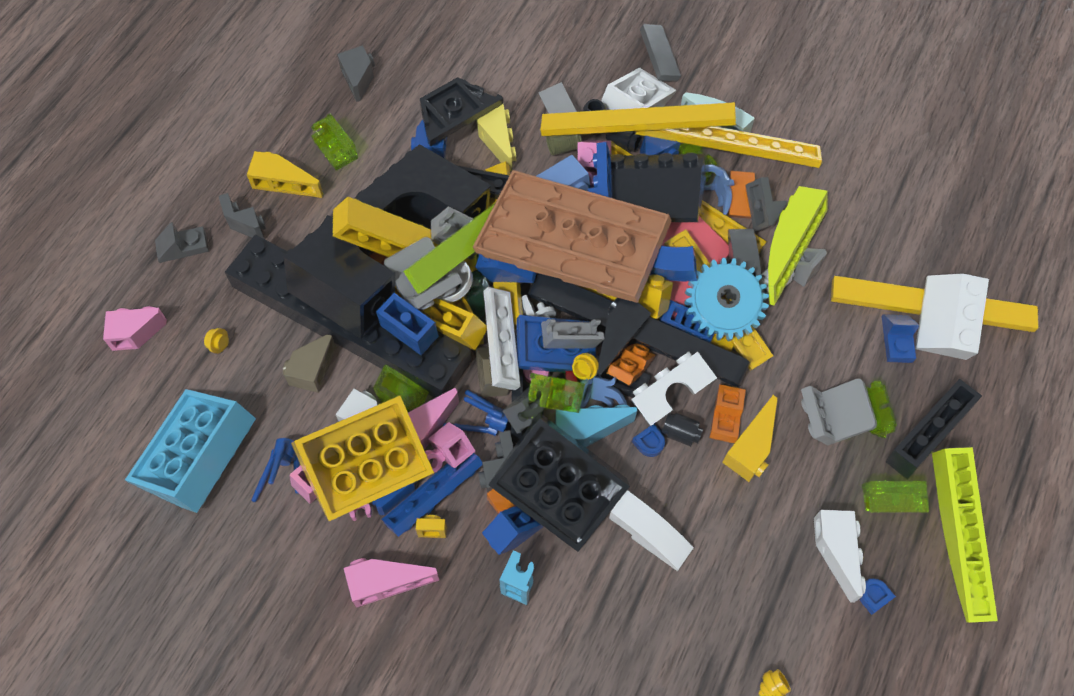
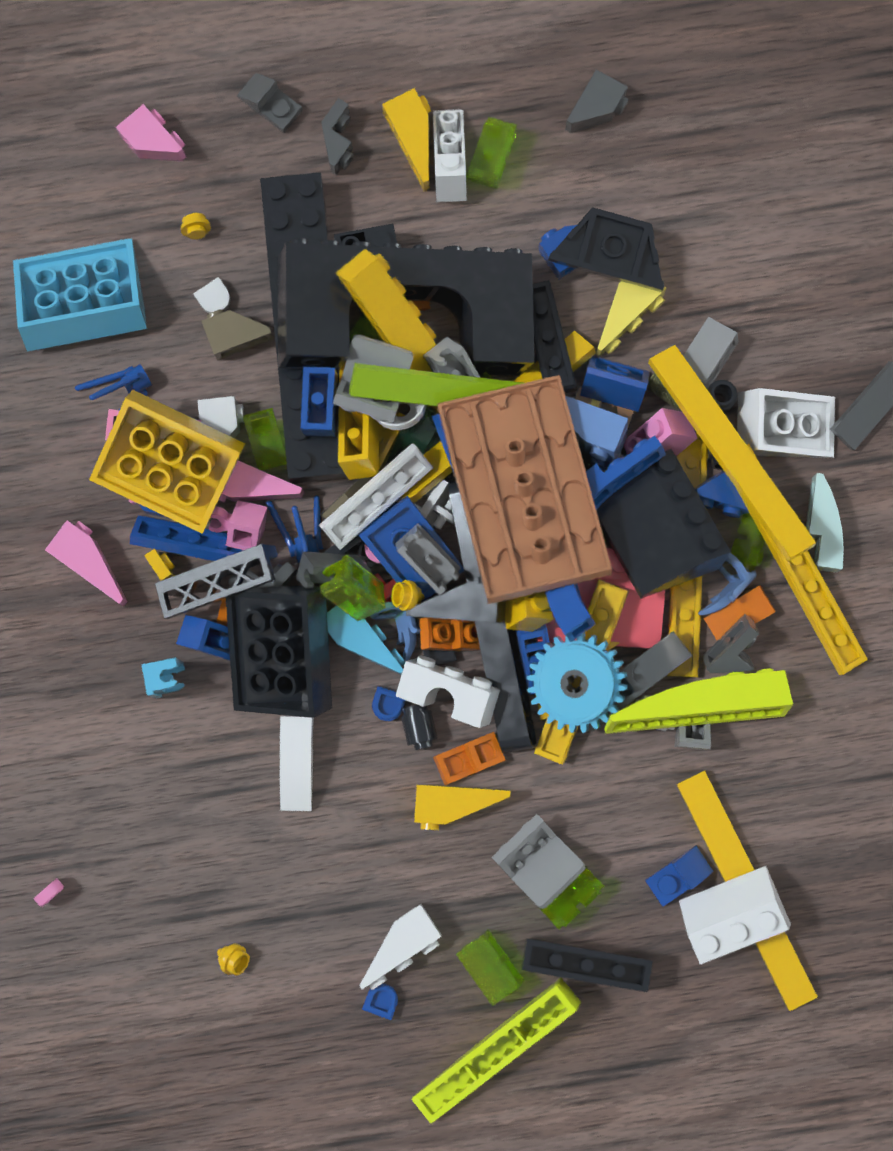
camera: 60 degrees right, 20 degrees up
(272, 363) = (213, 296): none -> white tile
(321, 164) = (449, 156): none -> white slope
(469, 480) = (212, 574): none -> fence
(541, 158) = (615, 383): none -> blue slope

